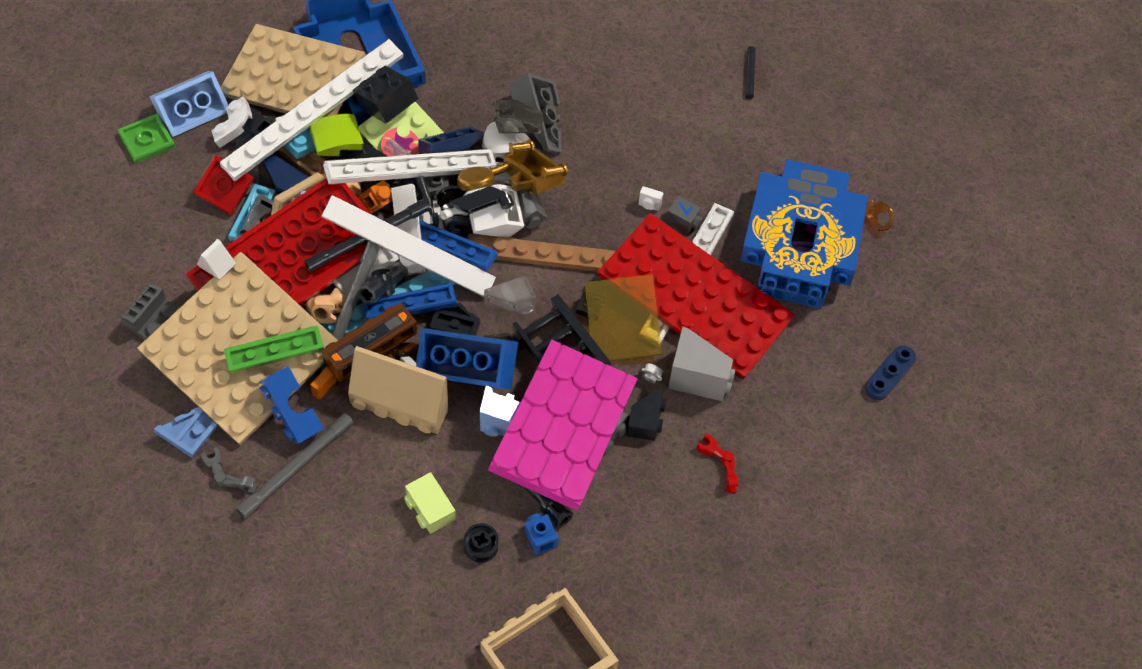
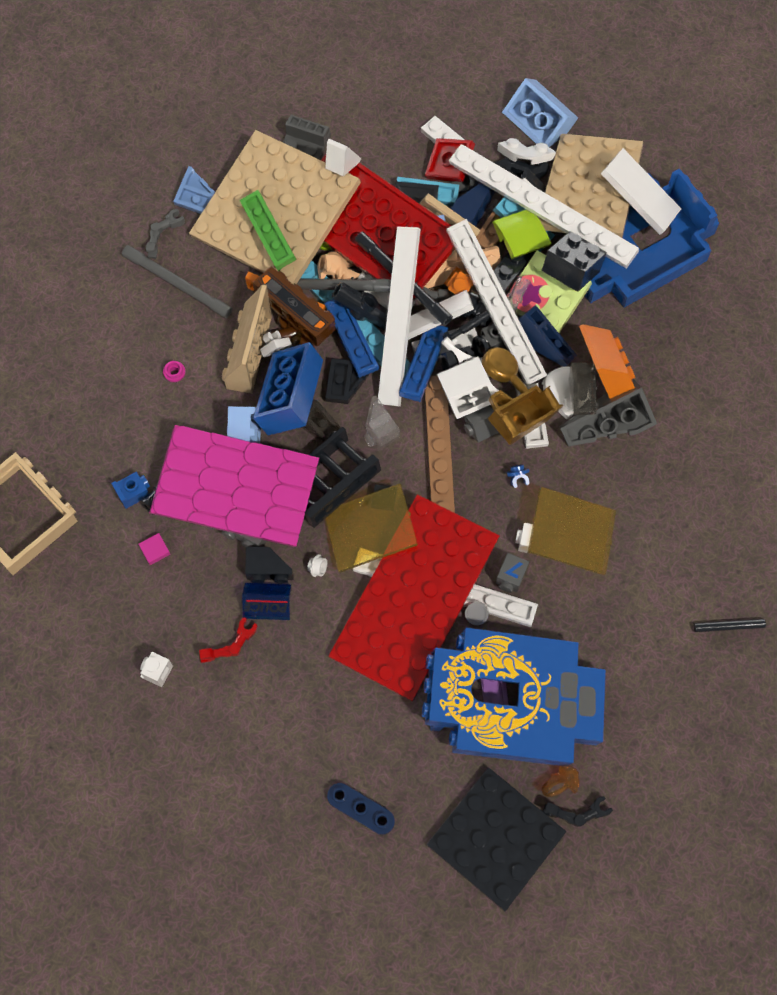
camera: 85 degrees right, 10 degrees up
(146, 138) = (492, 91): bright green tile -> none
(181, 193) = (437, 129): none -> white plate
(278, 388) = (210, 270): blue arch -> none
(318, 31) = (641, 191): none -> white tile
(405, 473) = (174, 365): none -> dark pink plate
(430, 503) = (150, 392): yellowish green brick -> none
(481, 98) = (608, 360): none -> orange slope
(481, 542) = (117, 441): black wheel -> none
(482, 199) = (467, 370): black piece -> none
(584, 194) = (516, 472): none -> blue plate
(610, 521) = (154, 549): none -> dark pink tile
(650, 161) = (572, 531): none -> clear yellow piece
(681, 421) = (266, 601): none -> clear blue panel
(701, 368) = (322, 604): light grey slope -> none
(717, 249) = (476, 613): none -> light grey piece
(742, 528) = (155, 669): none -> white brick
(910, 208) = (577, 820): none -> black piece
(922, 273) = (496, 839): none -> black plate

